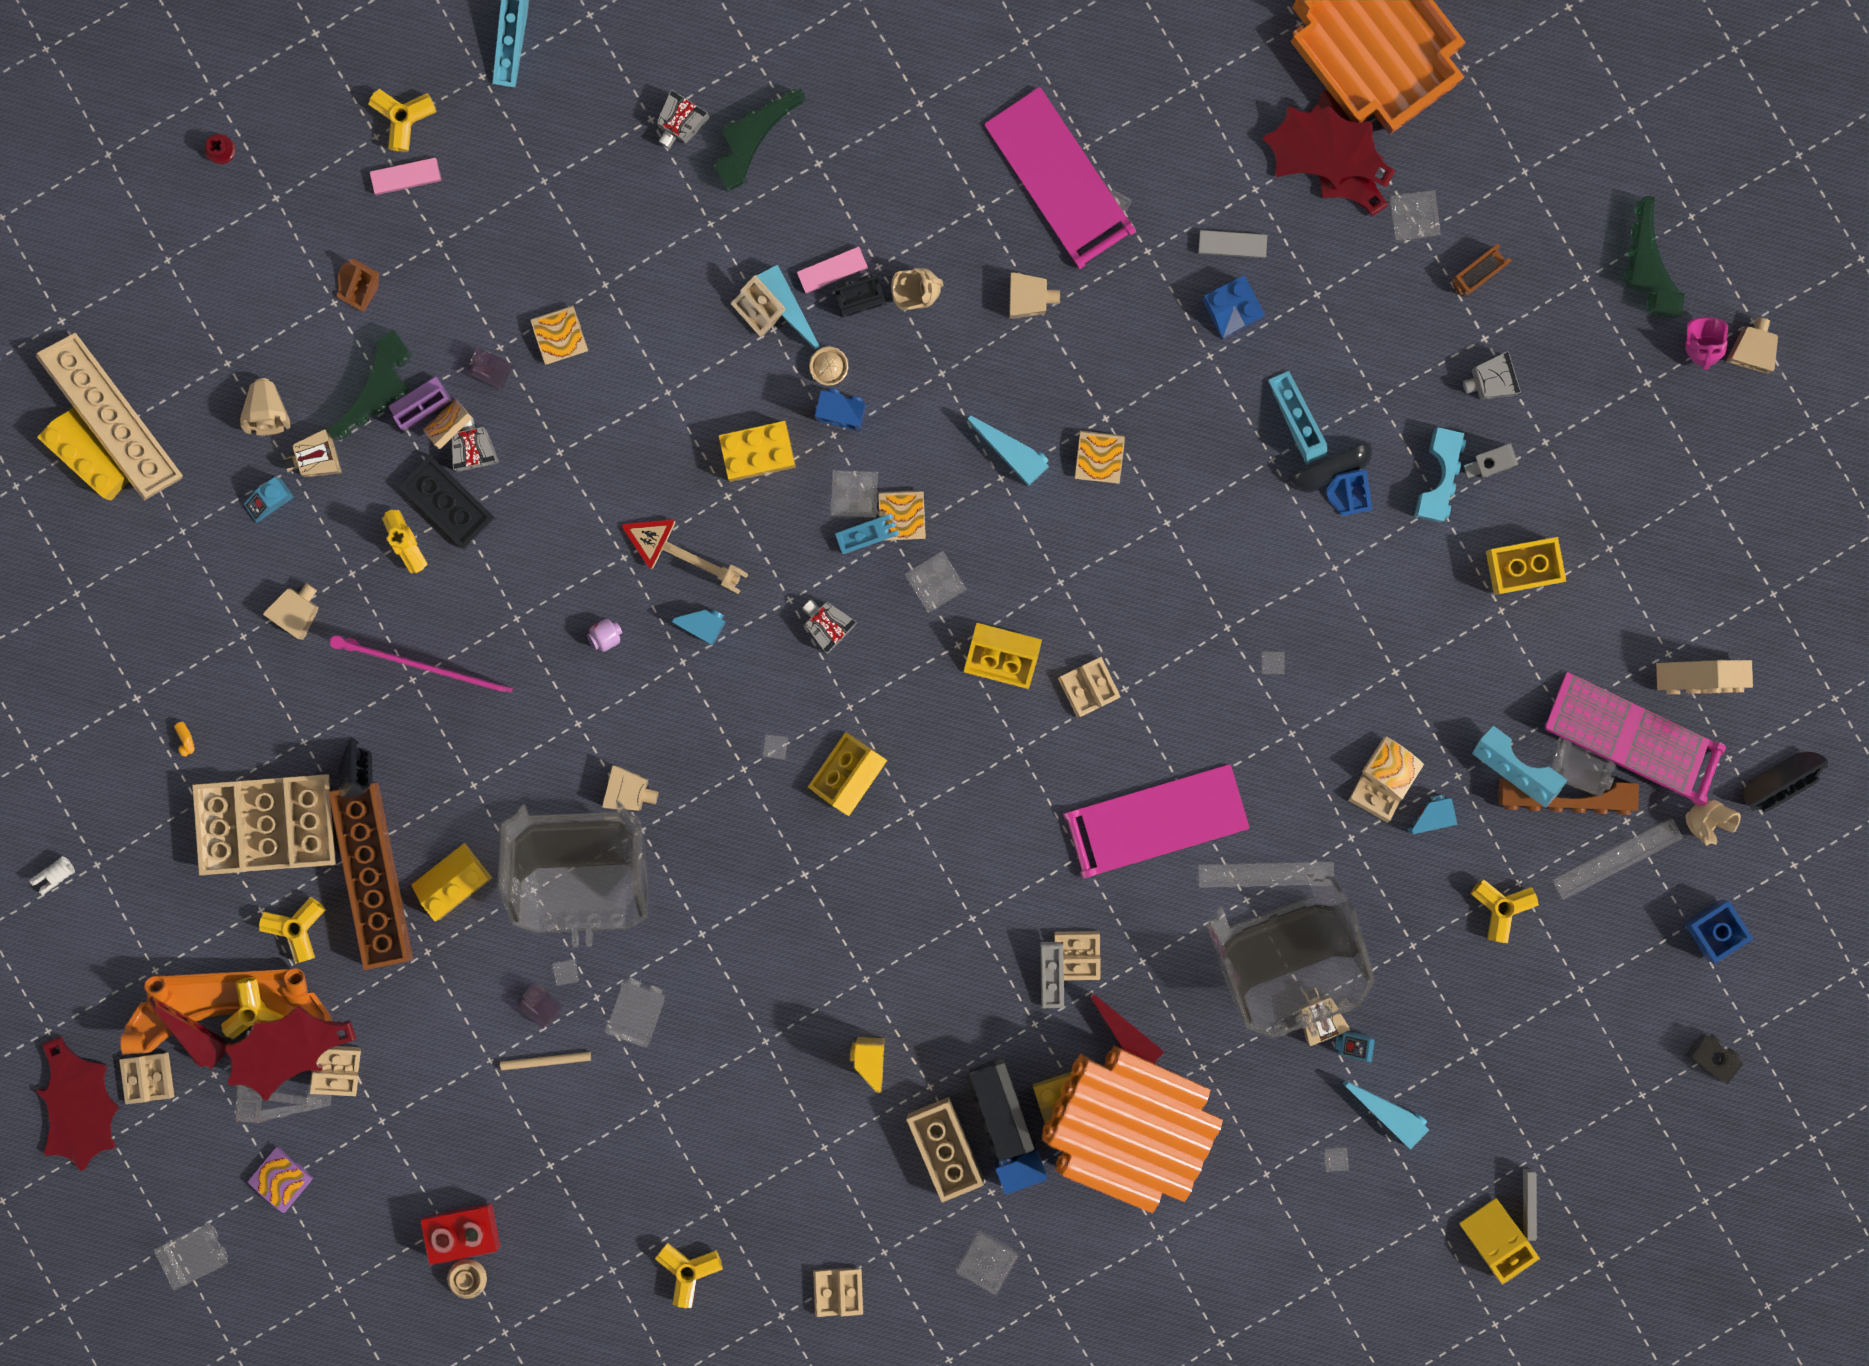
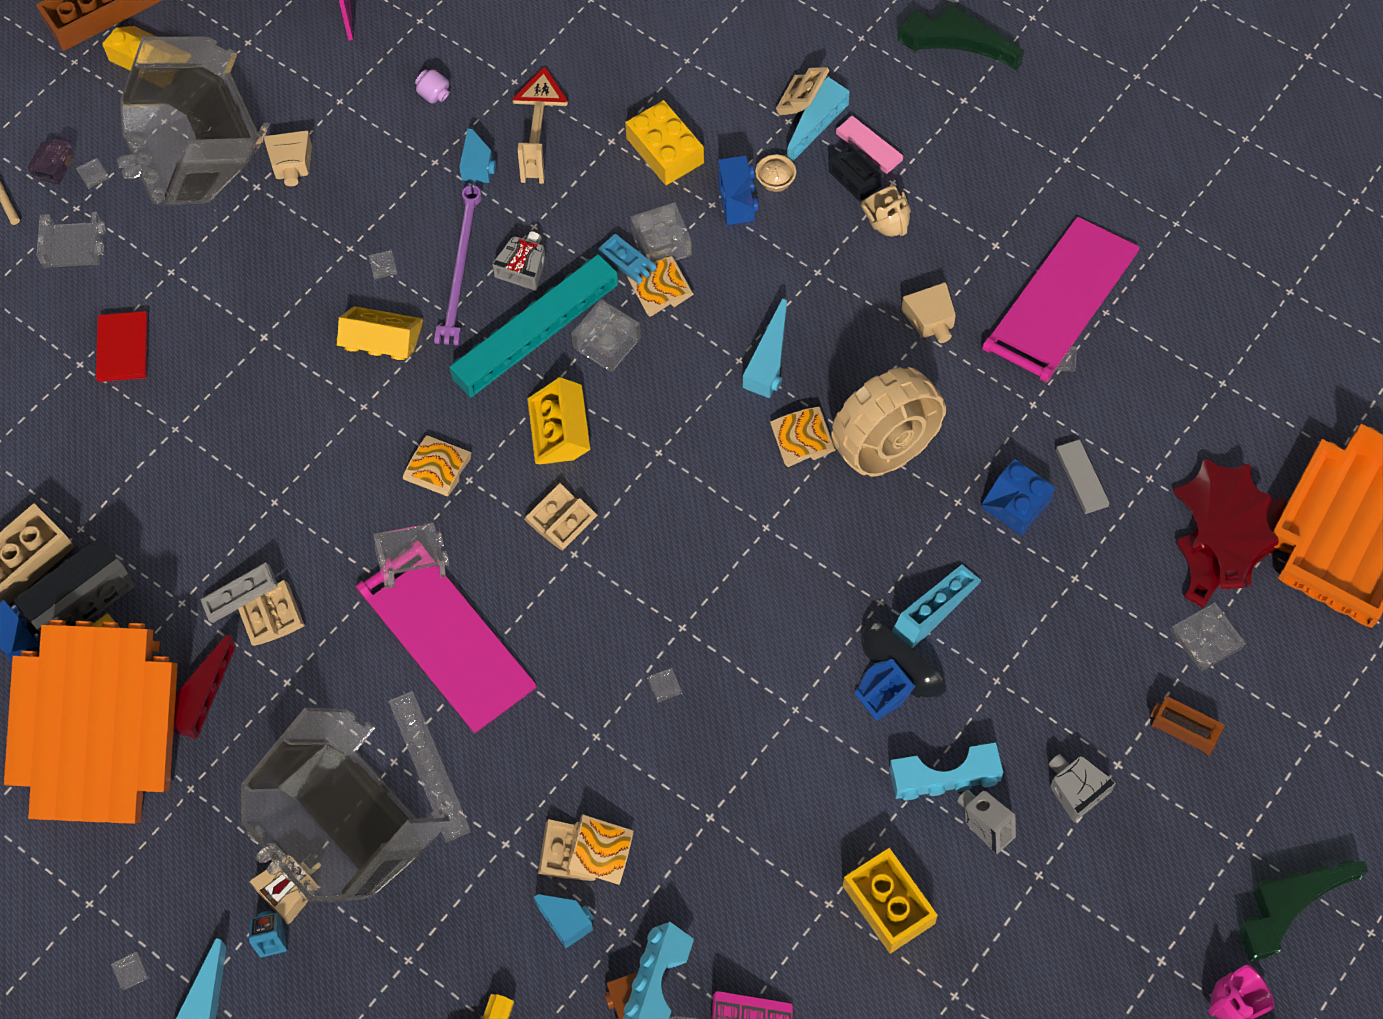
camera: 70 degrees right, 25 degrees down
(765, 1000) = (122, 346): none -> red tile
(806, 680) = (449, 329): none -> medium lavender hinge
(868, 1059) = (83, 447): yellow slope -> none
(898, 639) = (533, 325): none -> teal brick
(999, 771) = (437, 465): none -> slope
(1078, 824) = (409, 550): none -> clear panel
(1139, 386) = (888, 421): none -> tan wheel

